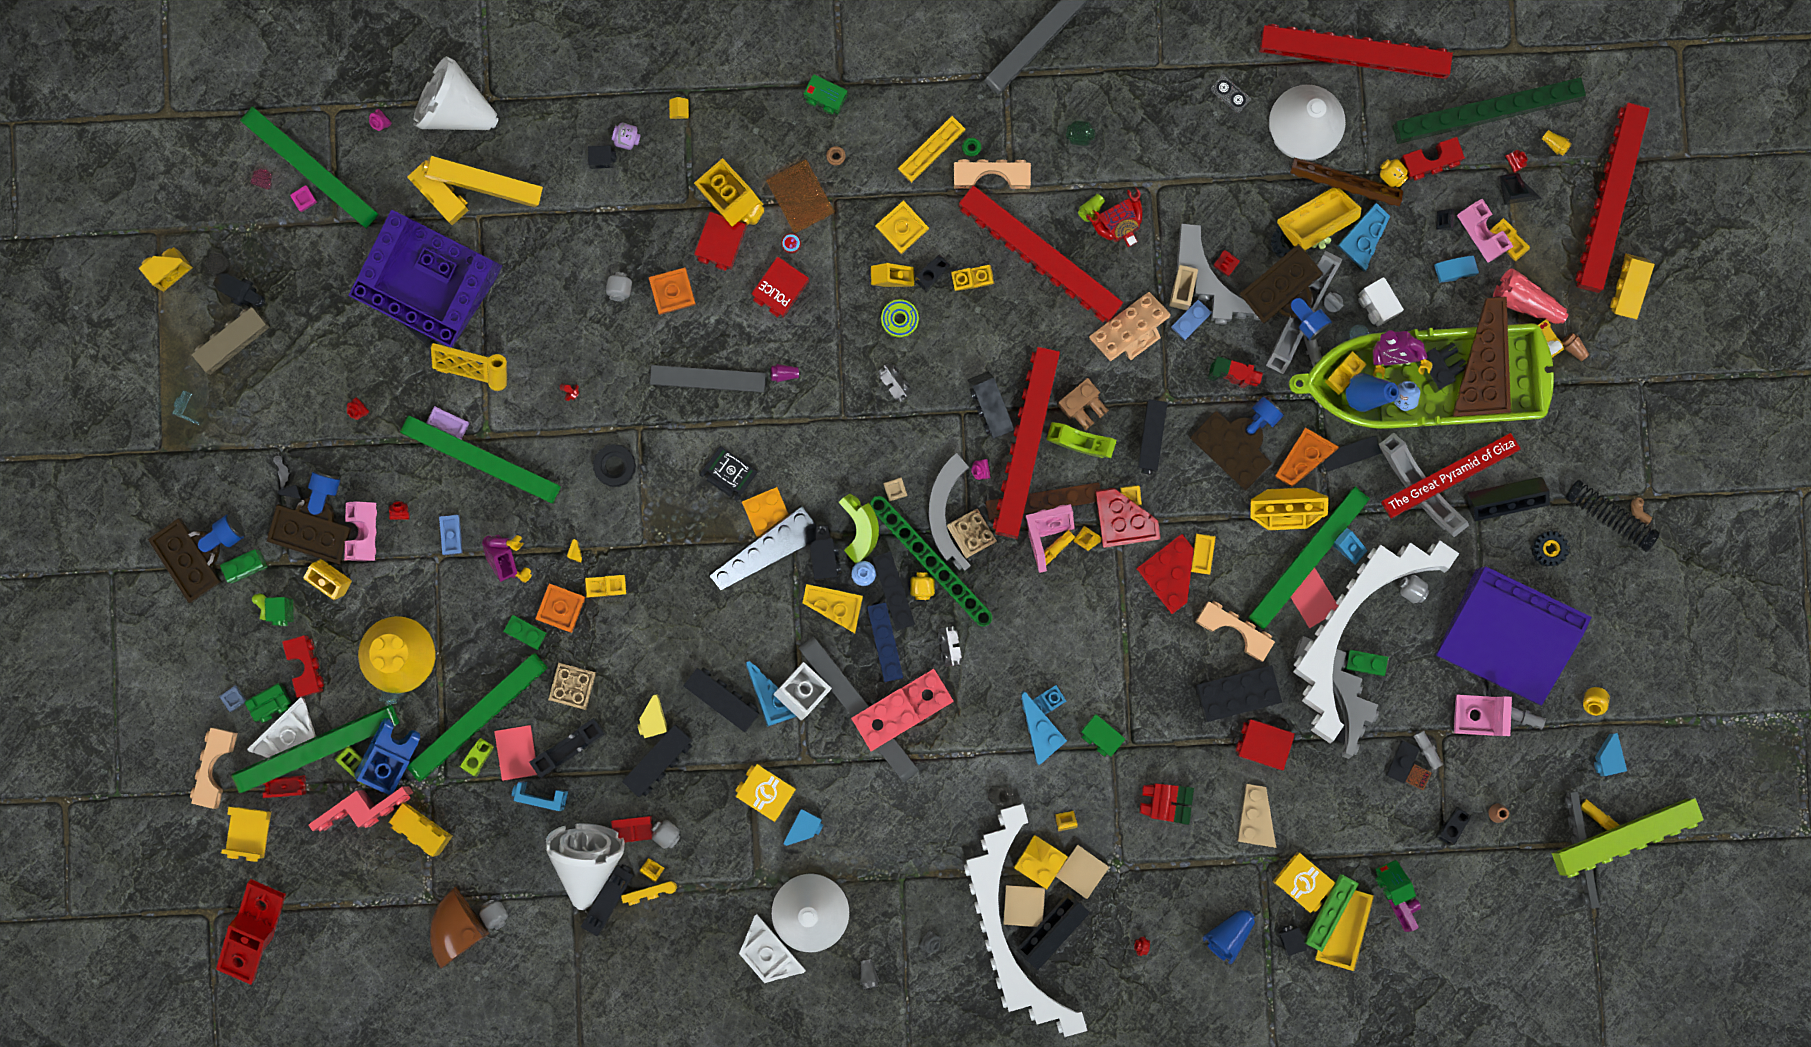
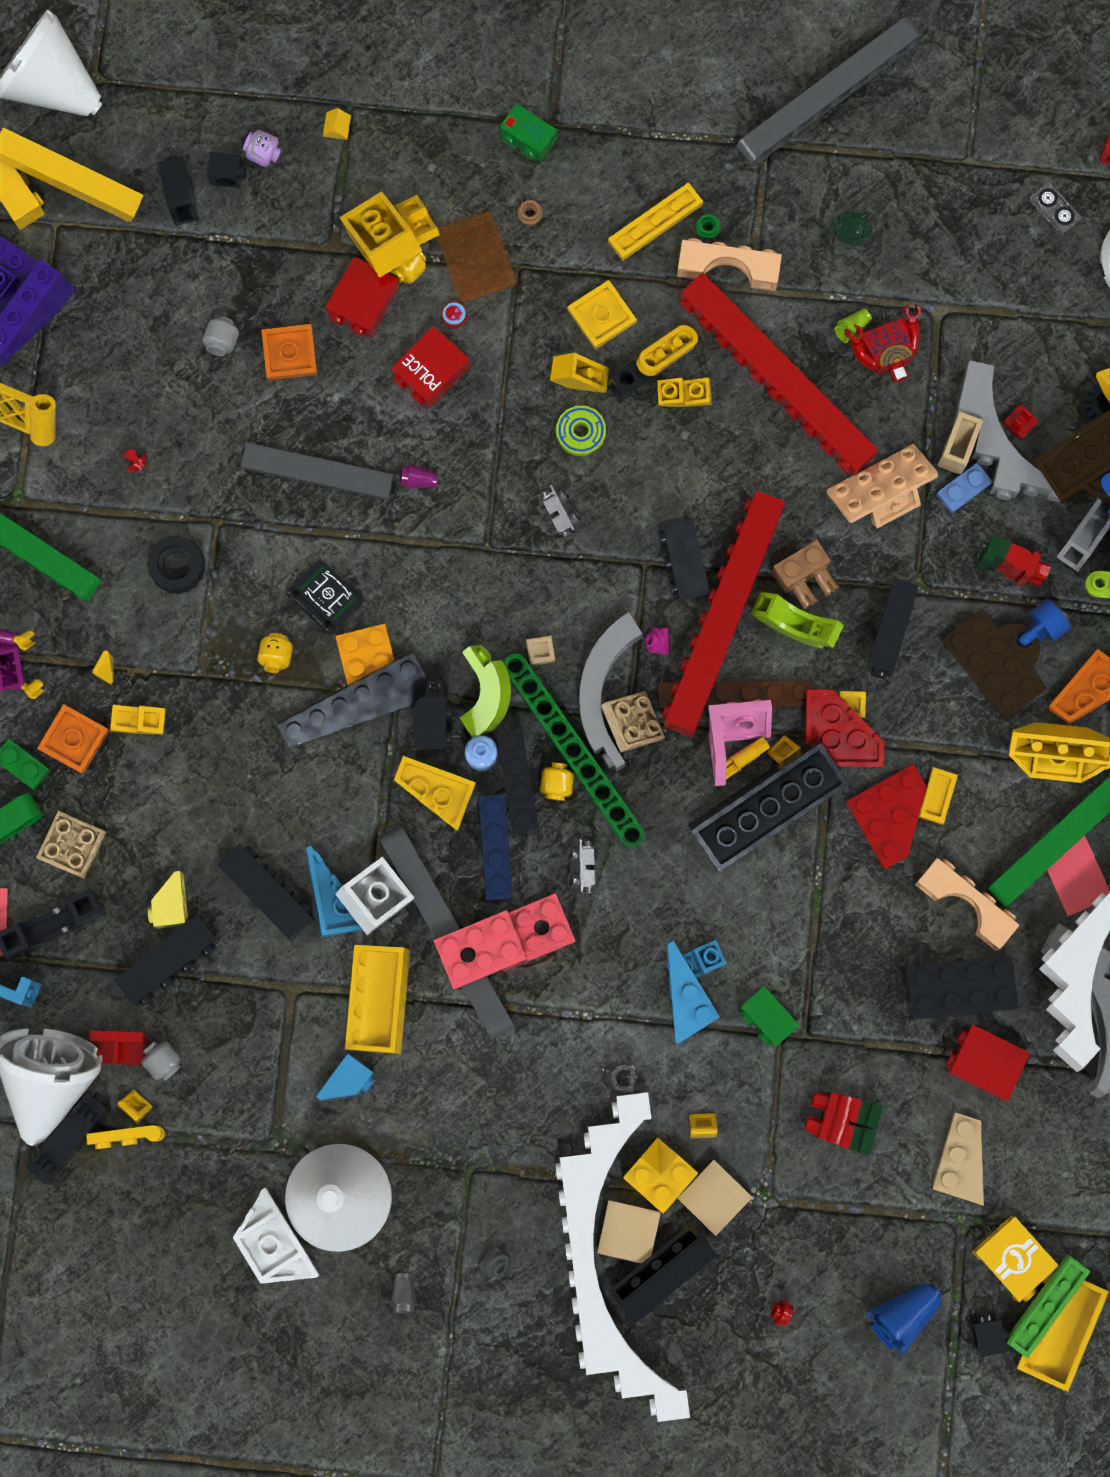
camera: 10 degrees right, 5 degrees down
(567, 178) = (178, 190): none -> black slope
(699, 521) = (275, 652): none -> yellow head
(752, 174) = (417, 218): none -> yellow slope
(765, 792) = (303, 1024): yellow panel -> none
(815, 765) = (377, 999): none -> yellow slope
(957, 243) = (671, 344): none -> yellow plate
(1079, 580) = (768, 804): none -> black arch

